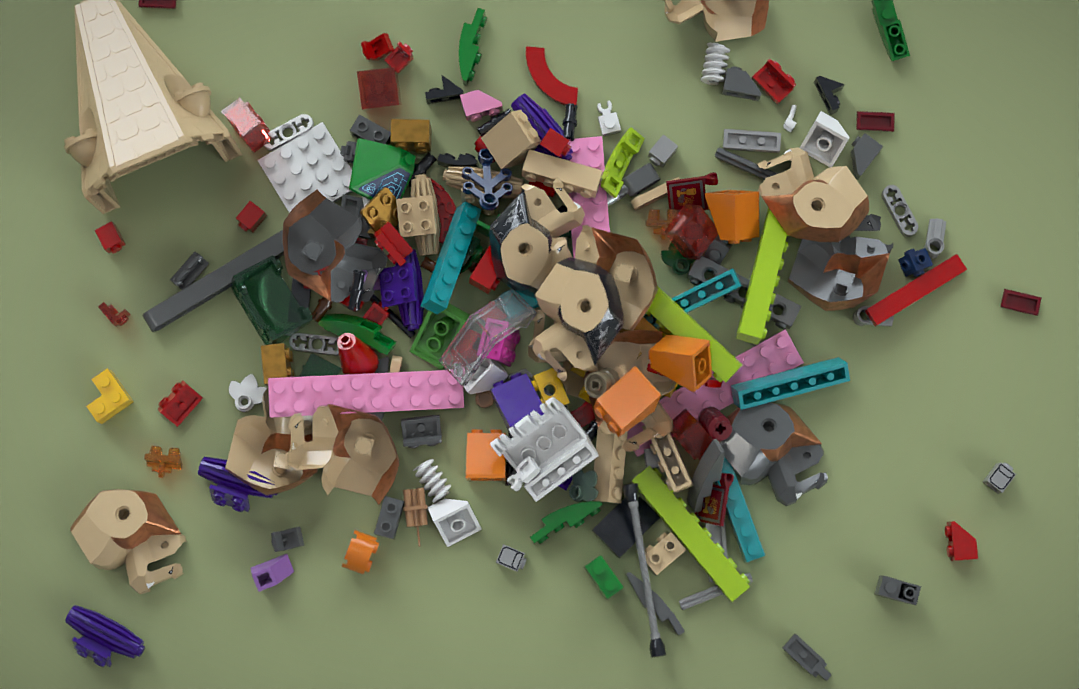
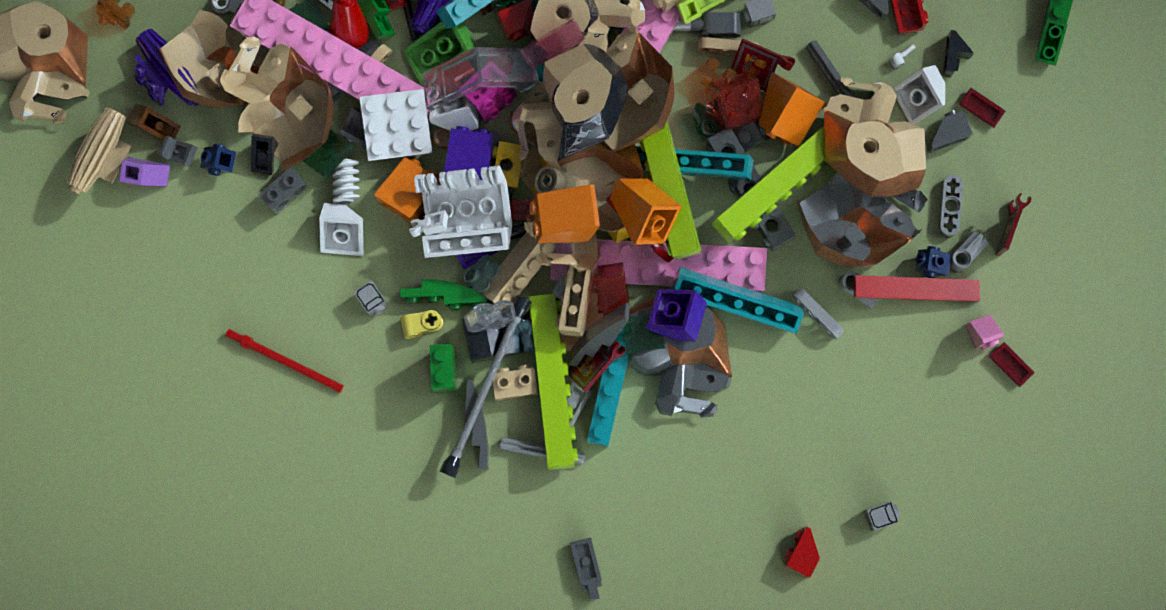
camera: 35 degrees right, 0 degrees up
(227, 579) = (99, 153): none -> tan plate
(252, 529) = (152, 123): none -> reddish brown slope
(323, 526) = (217, 159): none -> dark blue brick
(355, 500) = (262, 153): none -> black slope
(360, 552) = (235, 204): orange brick -> none
(409, 467) = (329, 155): none -> clear green tile
(415, 508) = (312, 197): medium nougat piece -> none
(437, 652) = (247, 342): none -> red bar
(445, 413) = (395, 125): none -> white plate
(532, 277) = (552, 44): none -> clear pink slope
(558, 555) = (417, 323): none -> light yellow piece
(615, 514) = (490, 316): none -> clear brick
(646, 509) = (525, 332): none -> clear light blue arm
(715, 423) = (640, 292): dark red piece -> none
(739, 453) = (639, 338): none -> clear green piece
(751, 141) = (850, 53): light grey plate -> none
(755, 423) = (677, 314): none -> dark purple slope
(854, 354) = (818, 313): none -> light grey beam
(897, 590) = (714, 559): dark grey slope -> none
(955, 197) = (1014, 216): none -> dark red flag
(987, 291) = (984, 332): none -> bright pink slope

